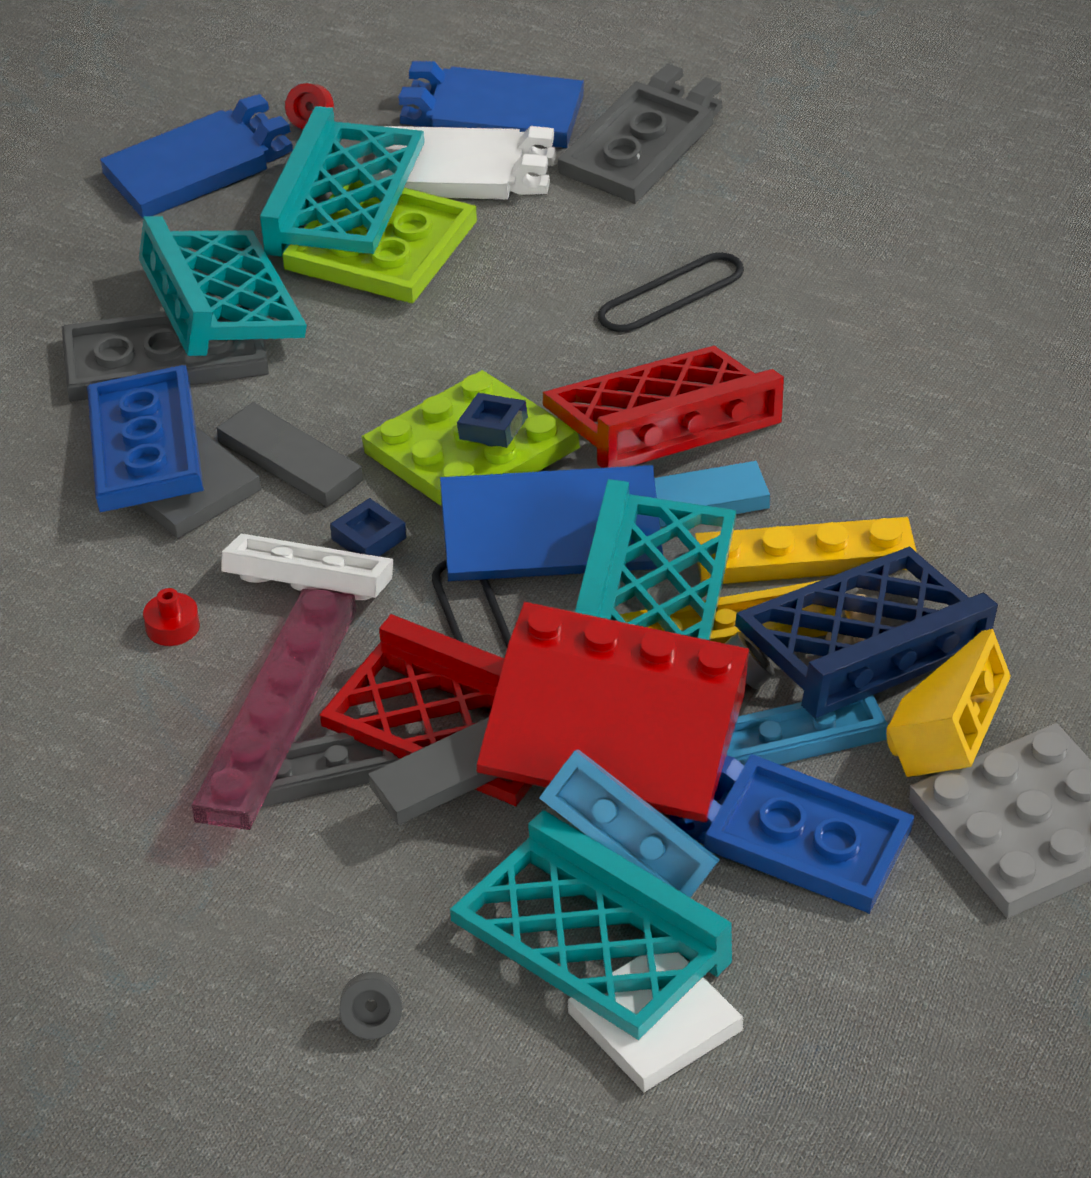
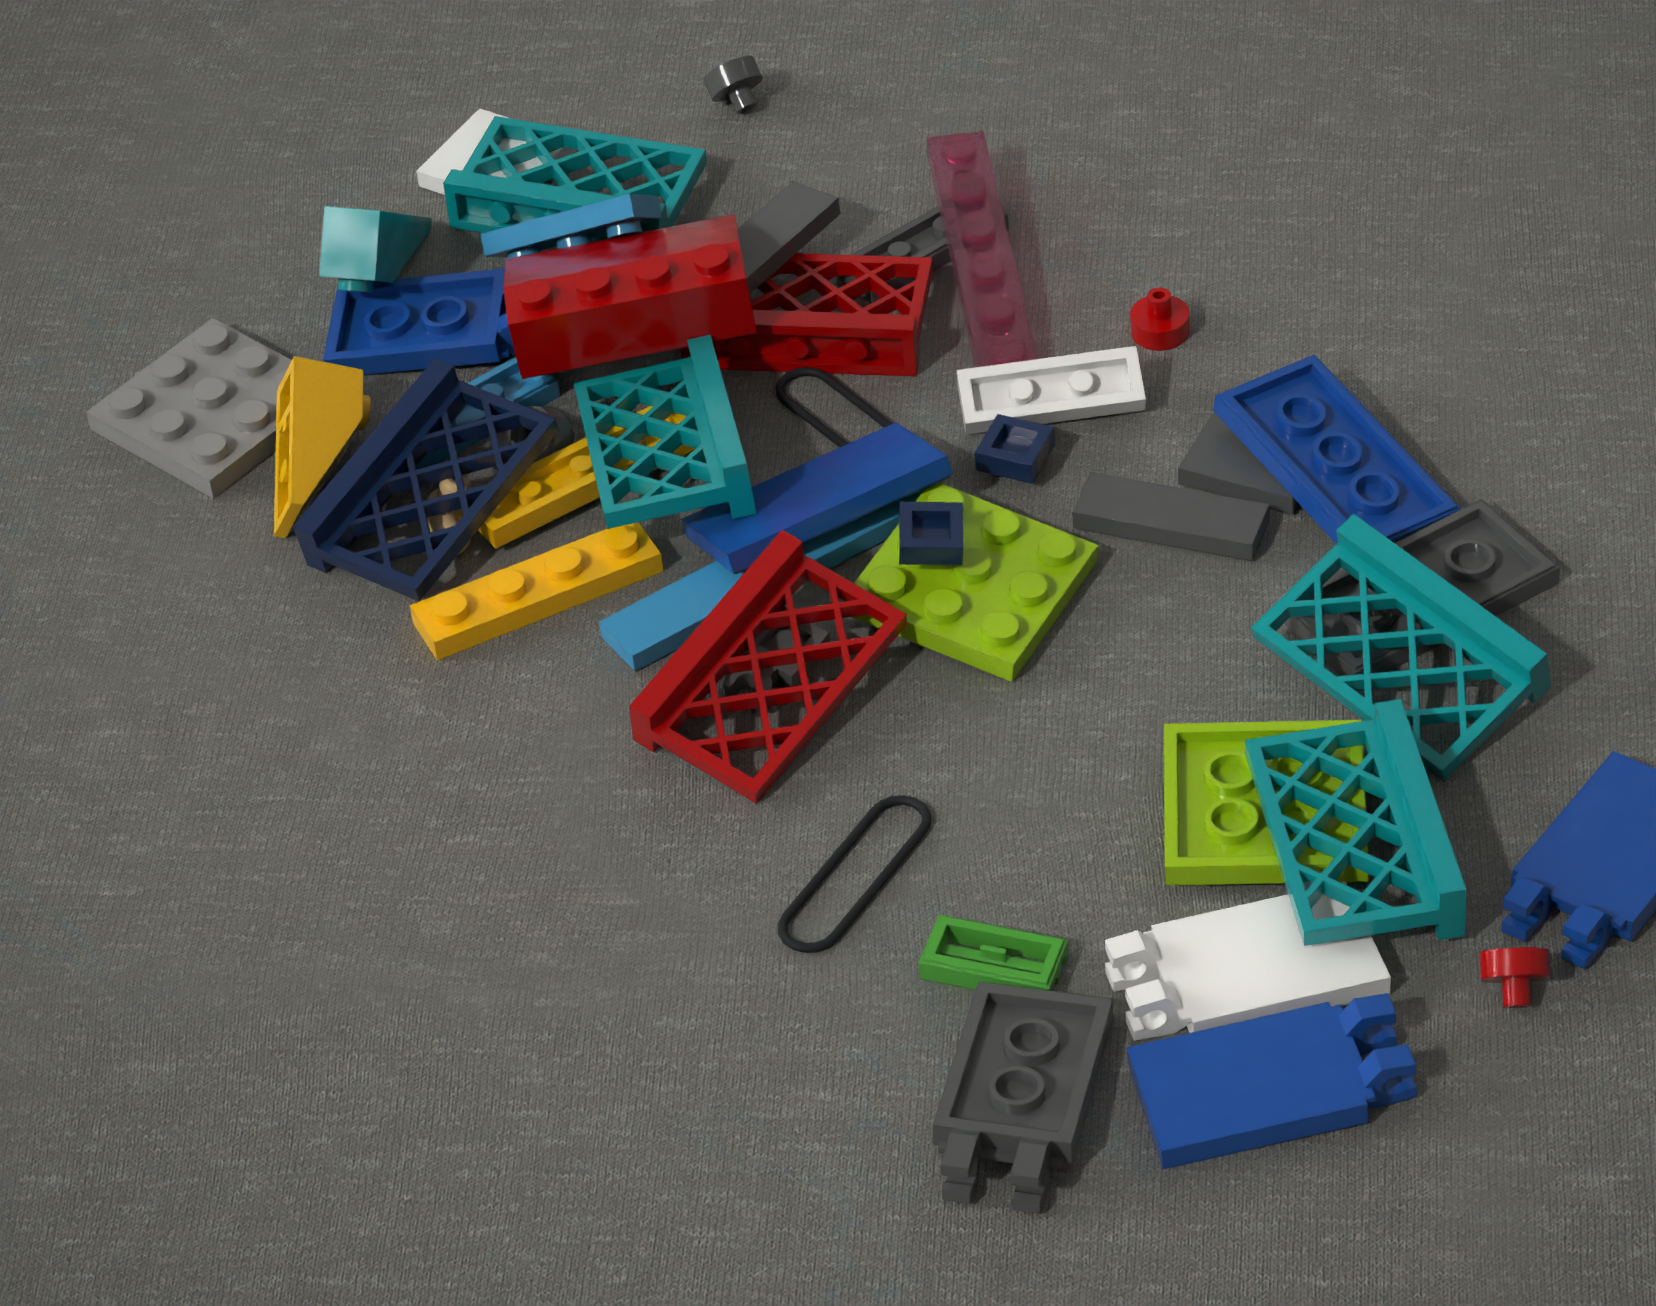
camera: 160 degrees right, 0 degrees up
(613, 212) = (990, 964): none -> bright green tile
(821, 898) = (368, 245): none -> teal slope

